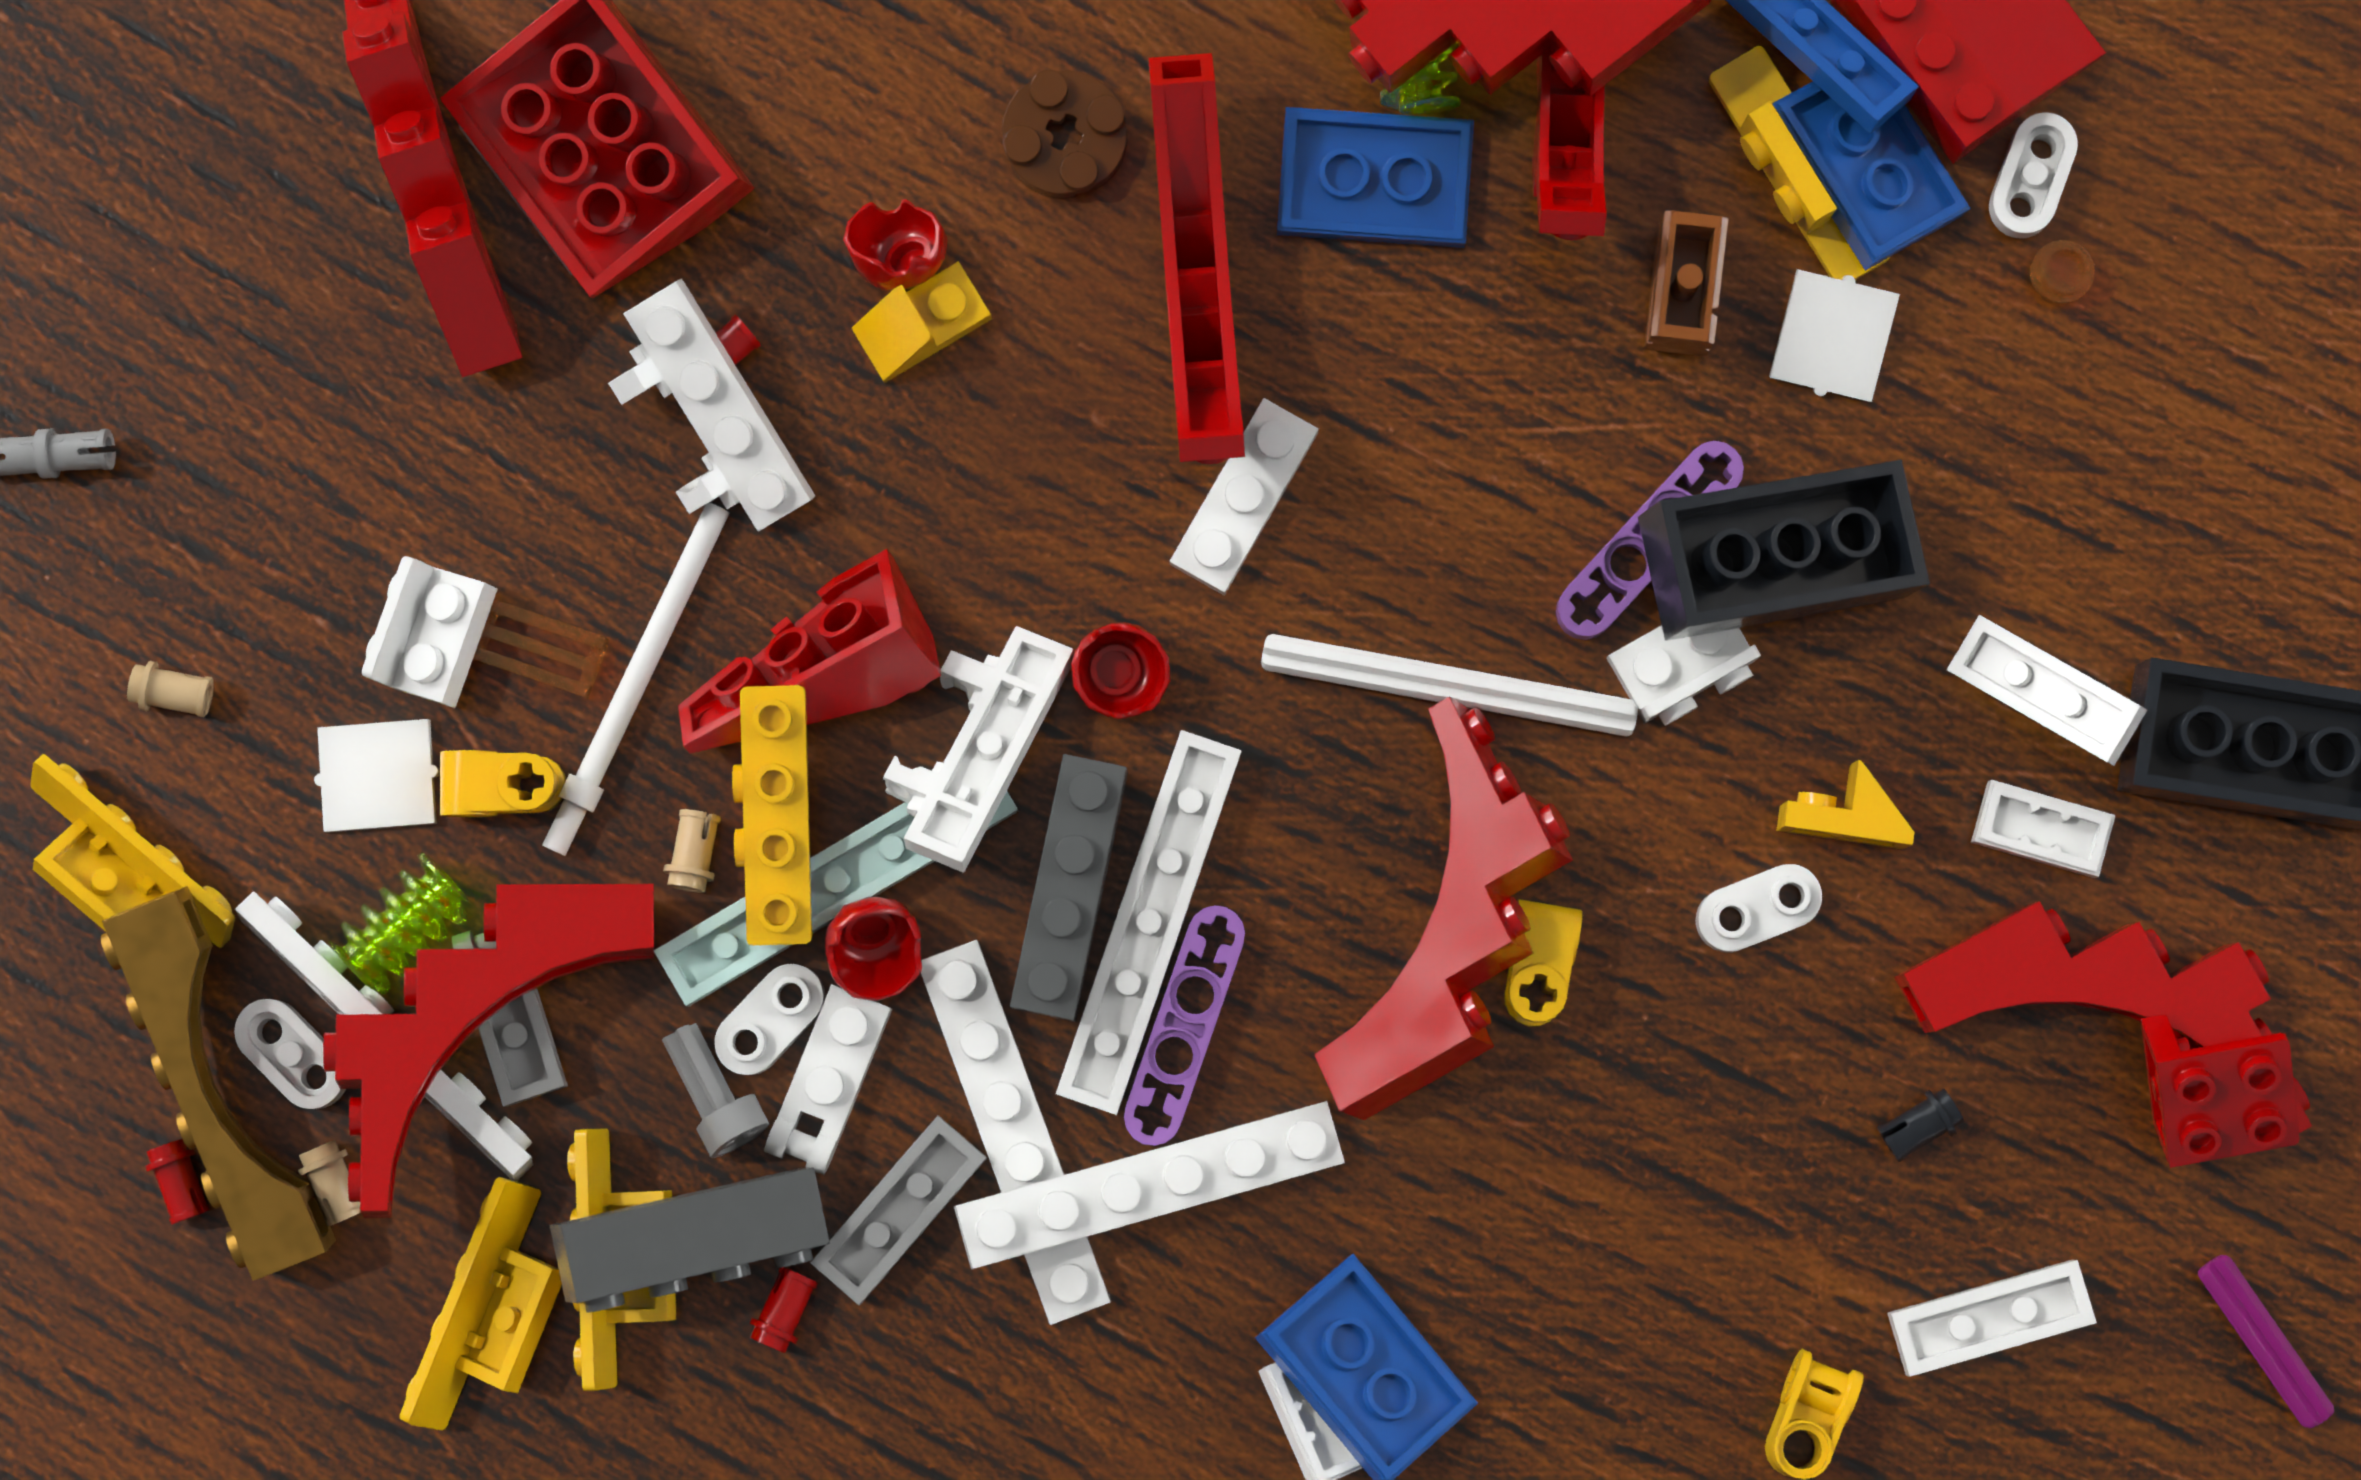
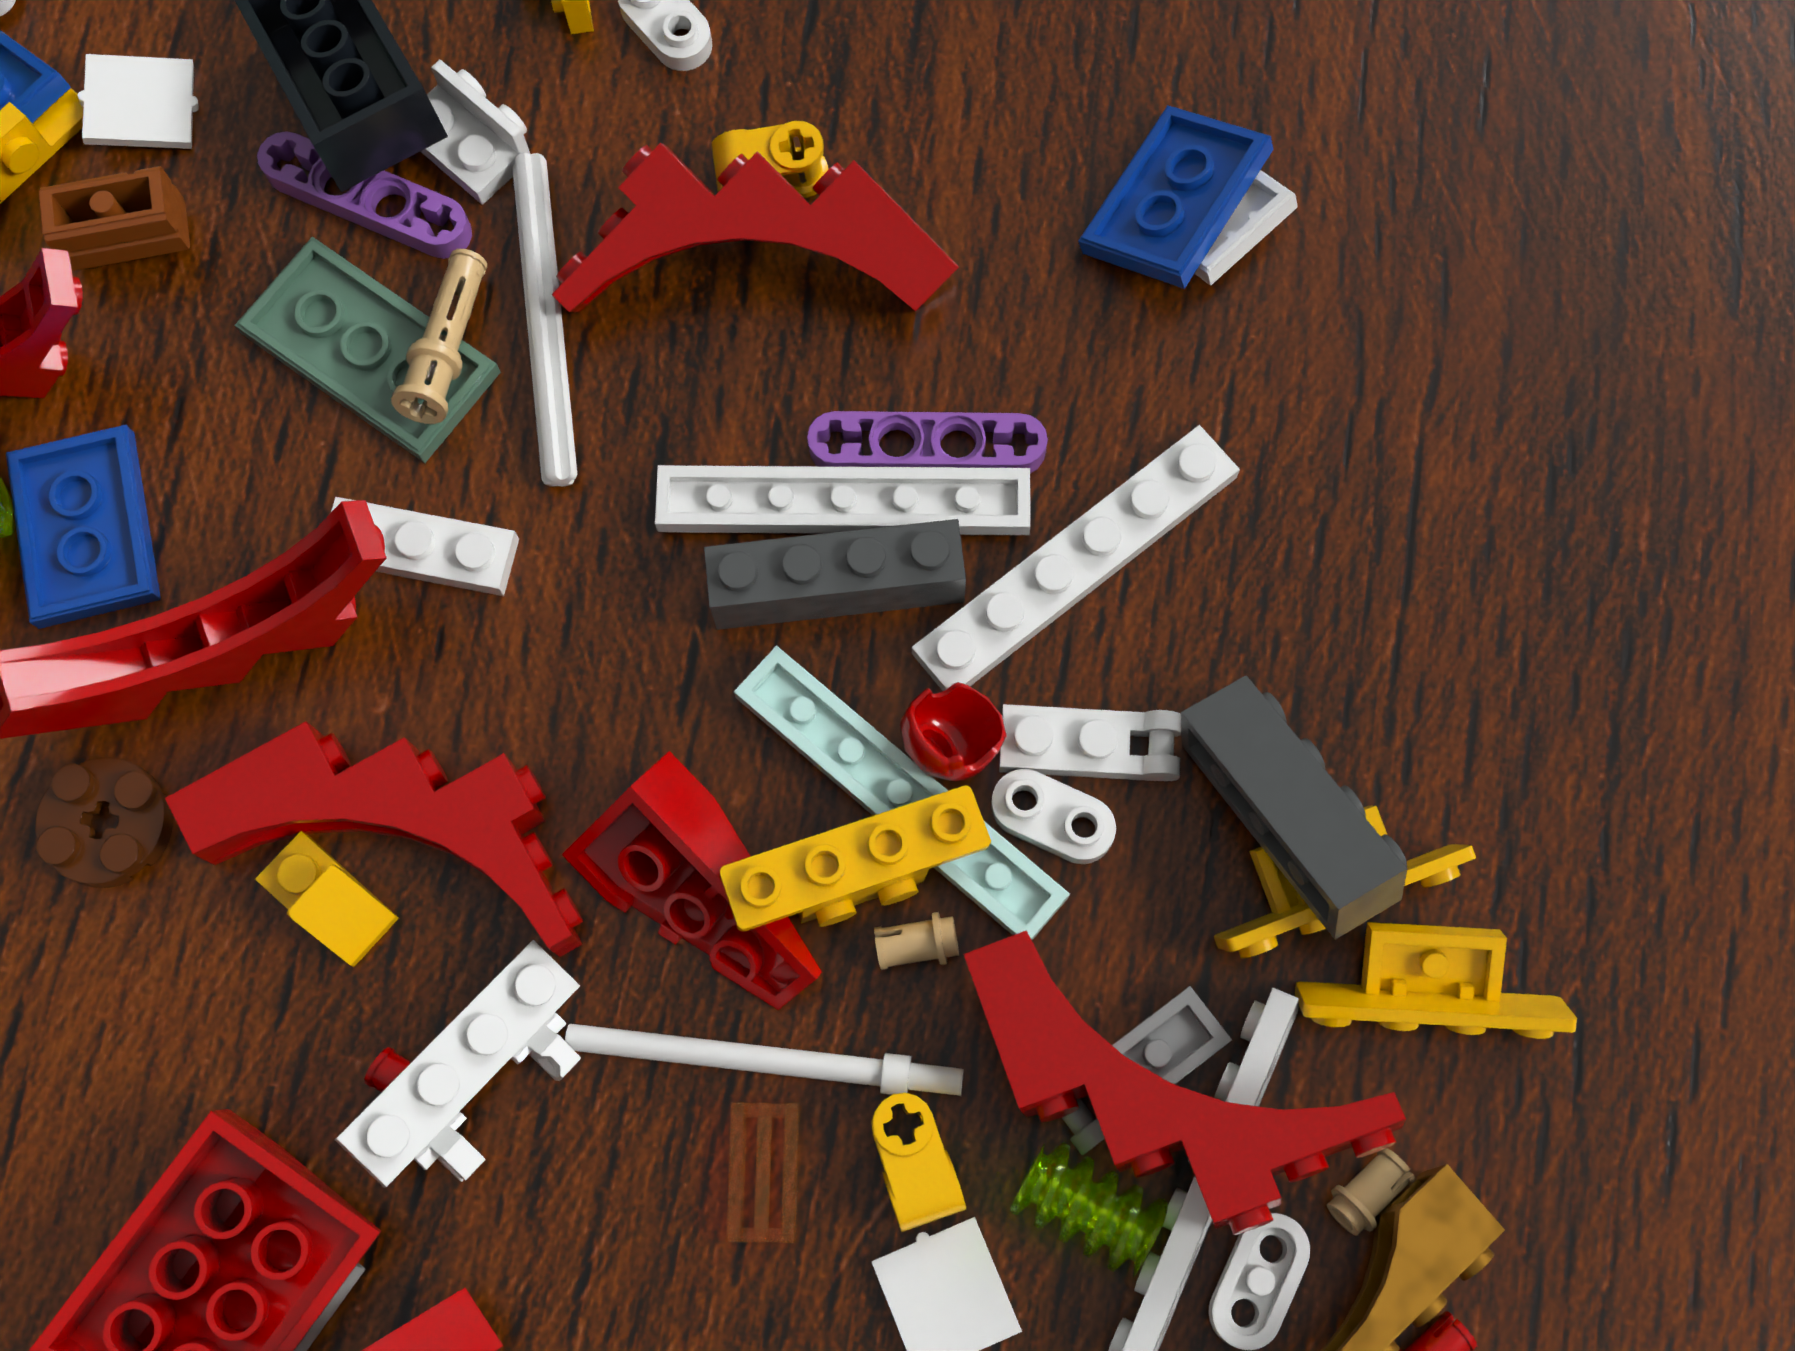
camera: 110 degrees left, 10 degrees down
(428, 632) = (781, 1288): white bracket -> none
(725, 1121) = (1168, 819): light grey piece -> none
(783, 1310) = (1322, 709): red pin -> none
(895, 245) = (251, 940): red hair -> none
(898, 1210) = (1186, 633): light grey plate -> none
(940, 478) = (302, 787): none -> red arch
(1007, 708) = (774, 686): white hinge -> none
(1120, 670) = (614, 592): red hair -> none
(1148, 1185) = (1087, 424): white plate -> none
(1423, 563) = (461, 279): none -> tan pin
(1475, 500) = (353, 344): none -> sand green tile

